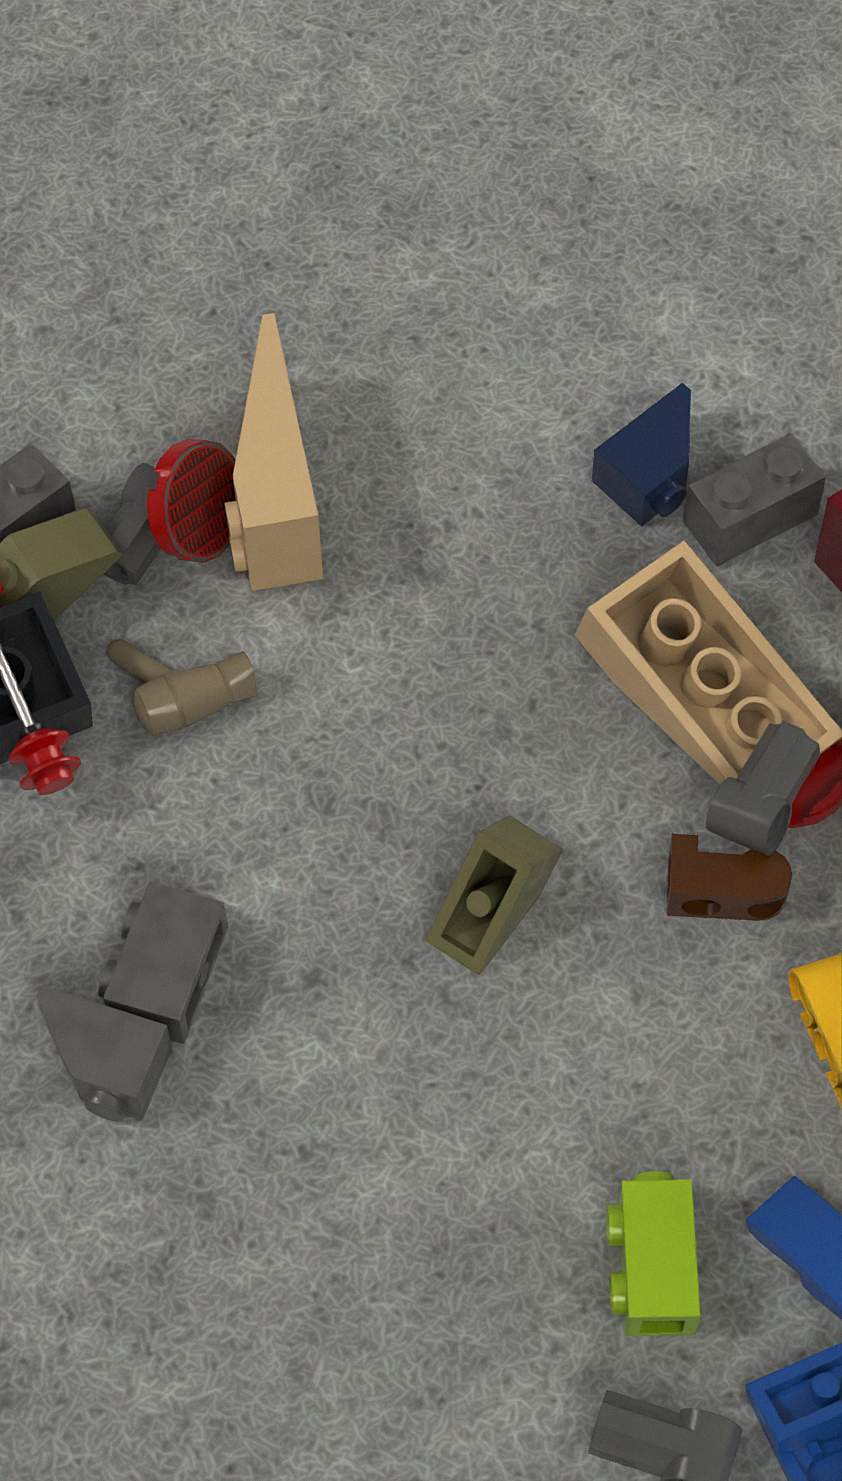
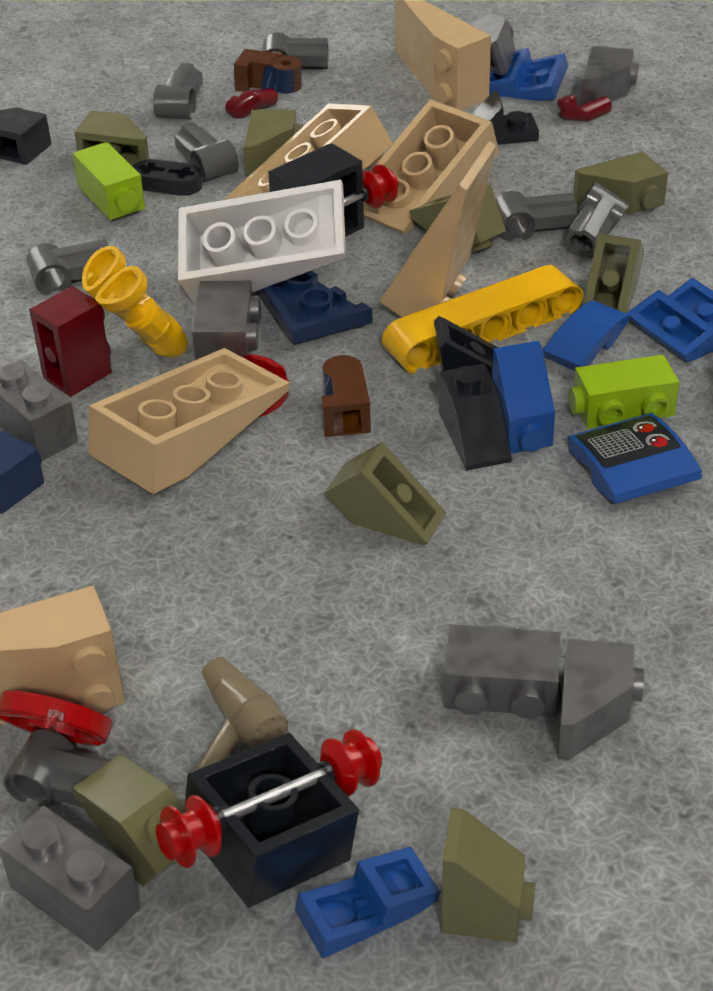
camera: 100 degrees left, 20 degrees down
(521, 1234) = (634, 457): none -> slope
(631, 1091) = (524, 396): none -> blue slope
(637, 1034) = (473, 416): none -> black slope
(758, 803) = (297, 363): dark grey piece -> none
(766, 1055) = (460, 347): none -> black slope

